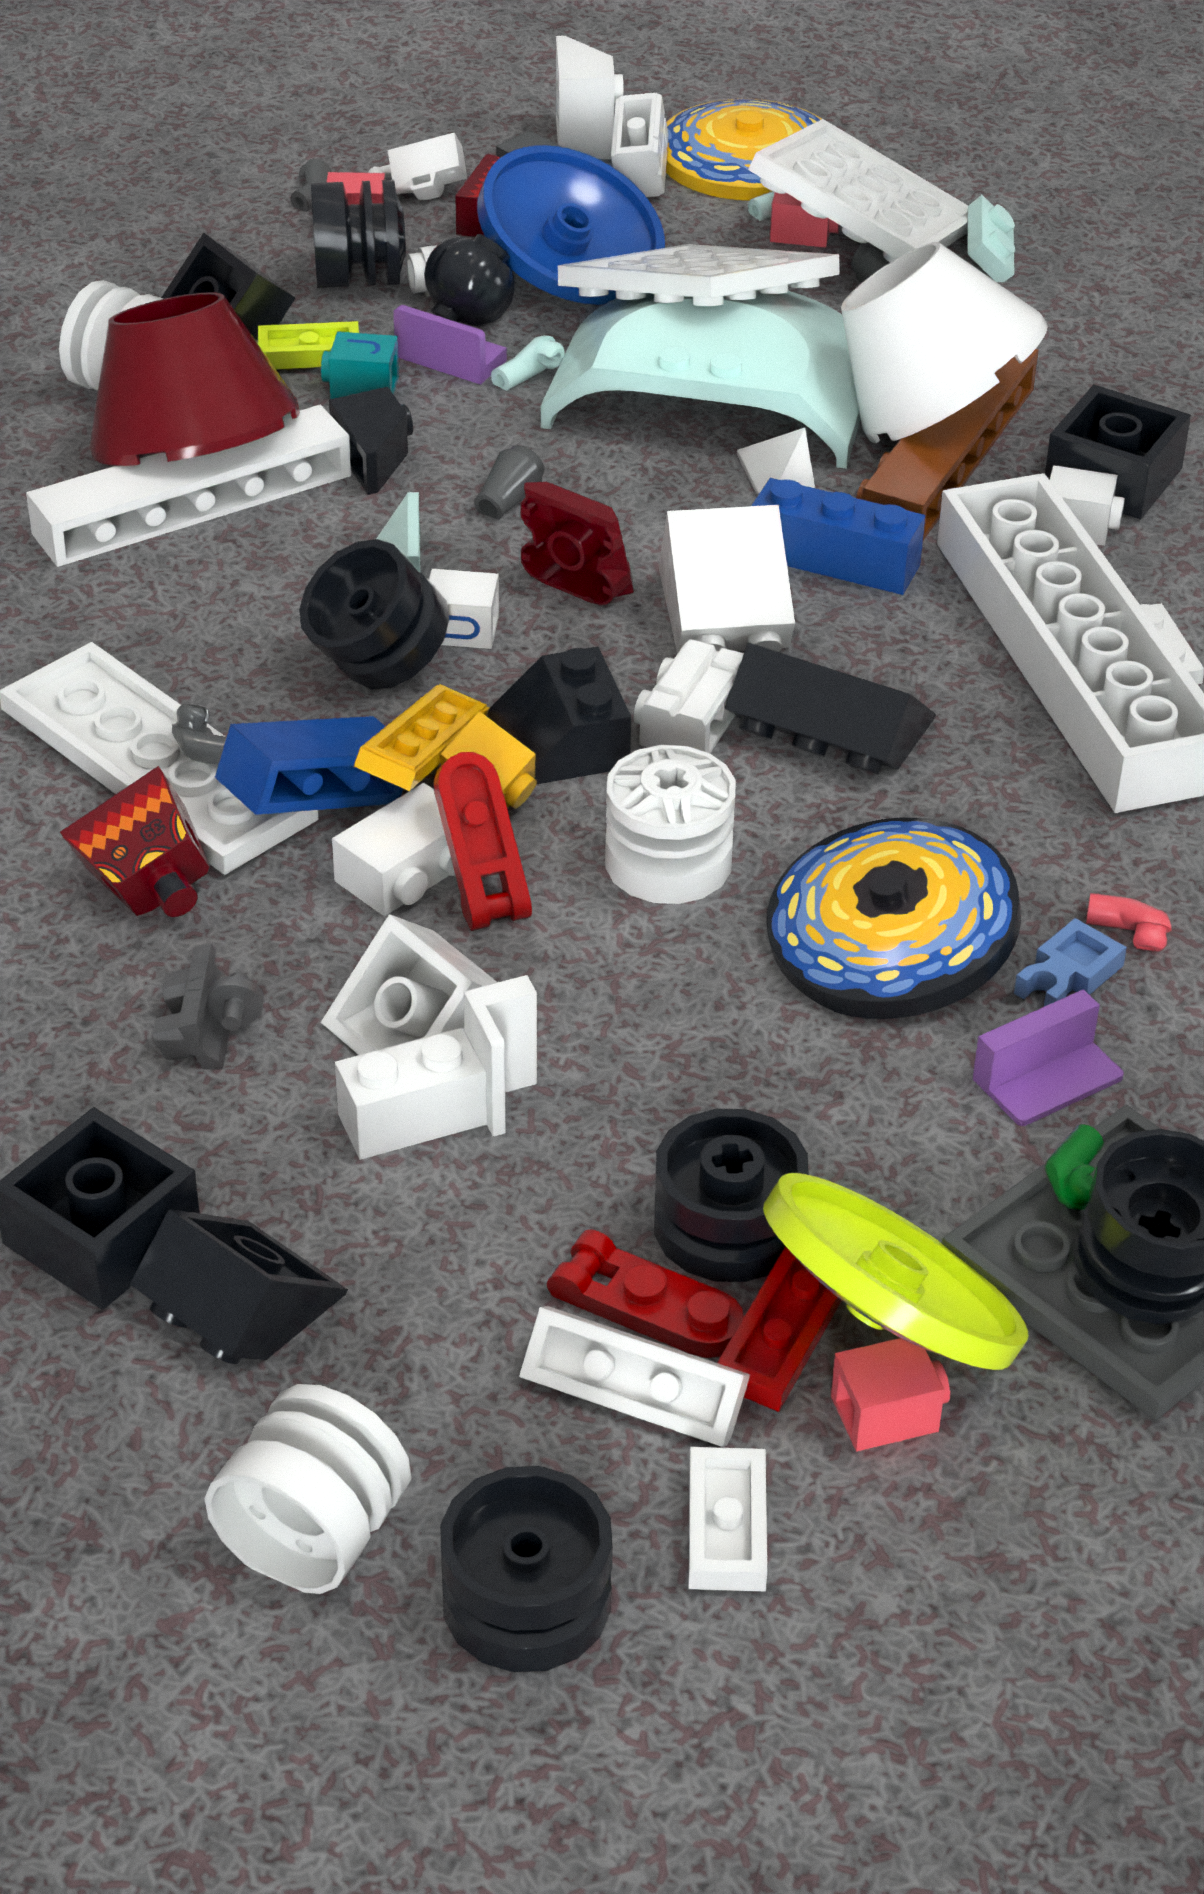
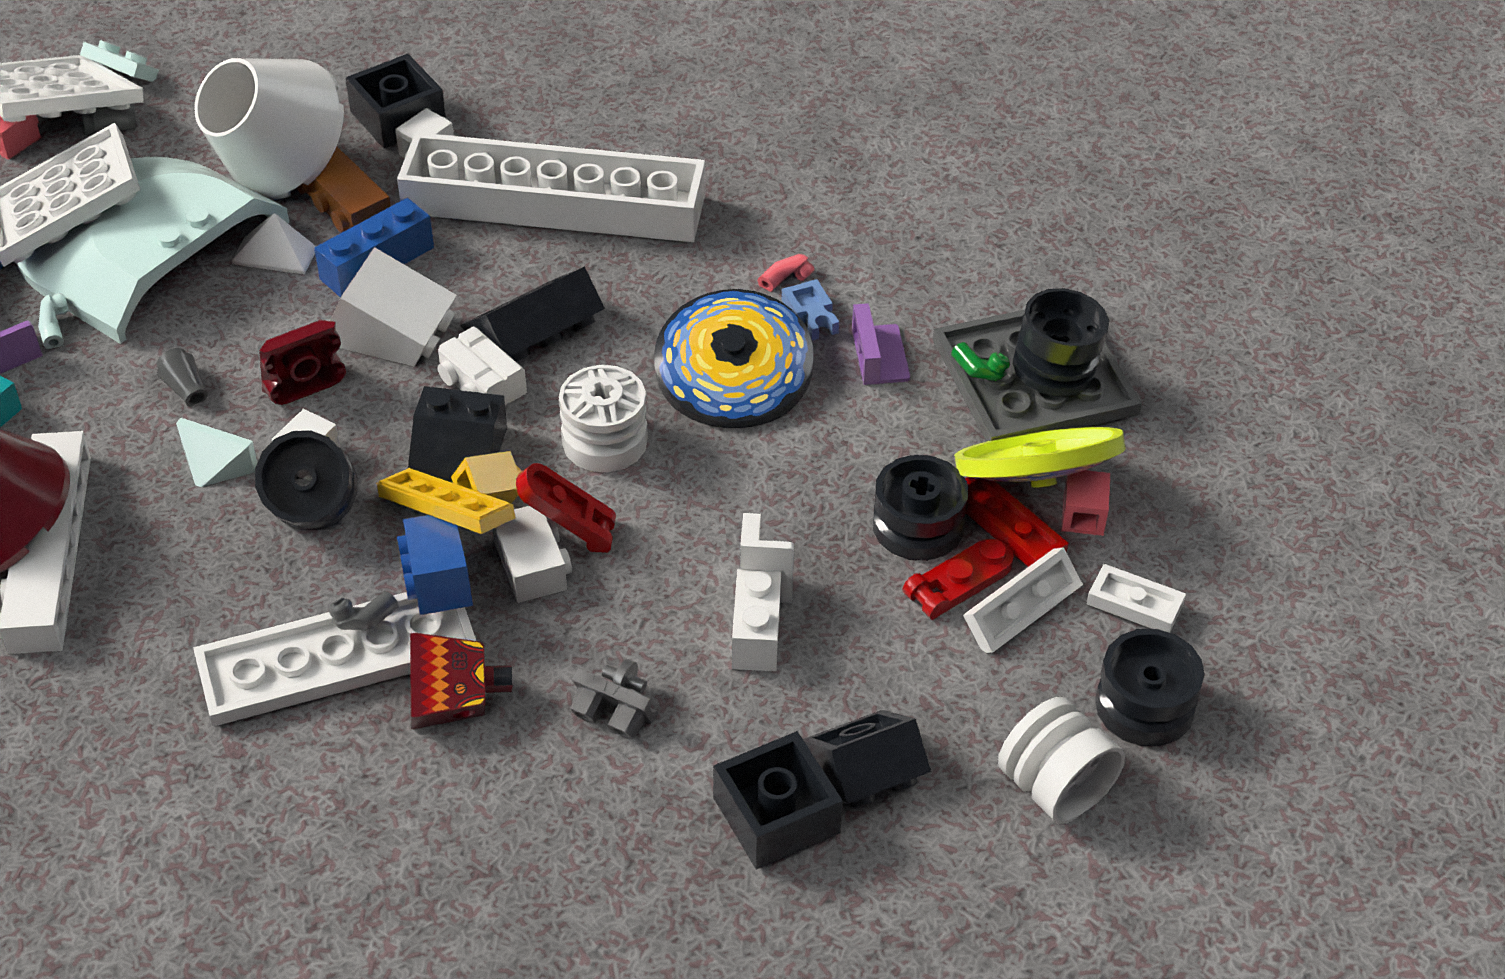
camera: 65 degrees left, 5 degrees up
(376, 434) = (77, 413): black slope -> none
(403, 989) = (677, 596): white slope -> none

